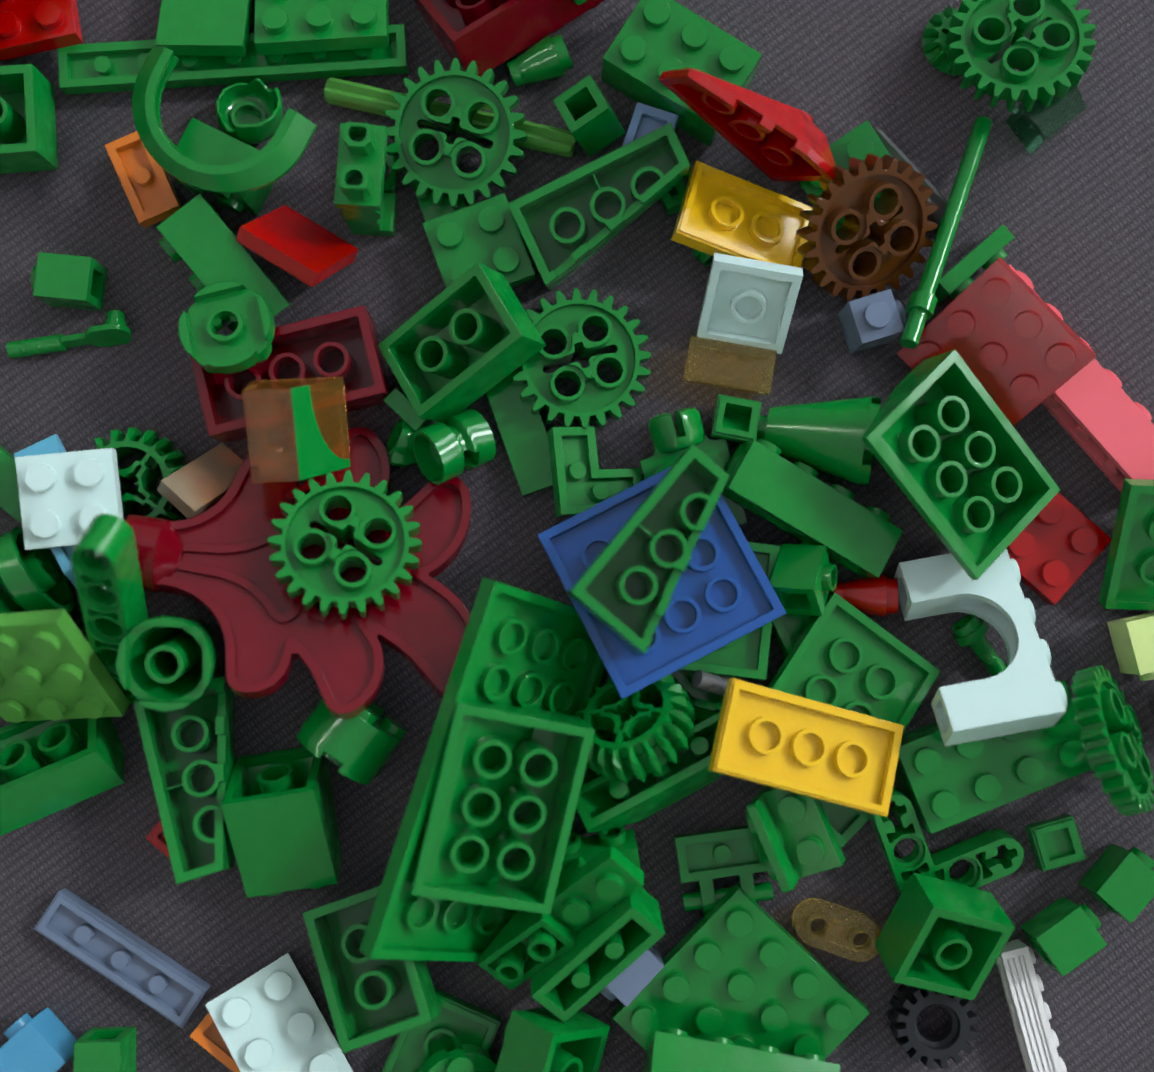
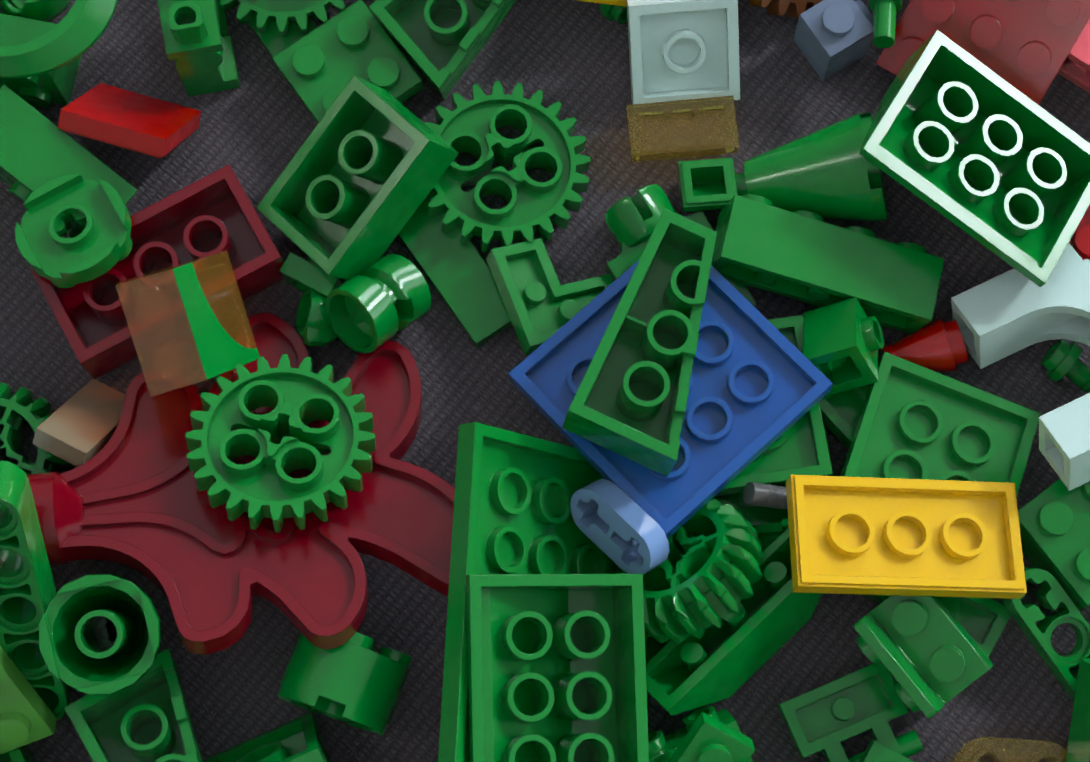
camera: 10 degrees left, 10 degrees down
(589, 681) = (619, 527): none -> medium blue beam

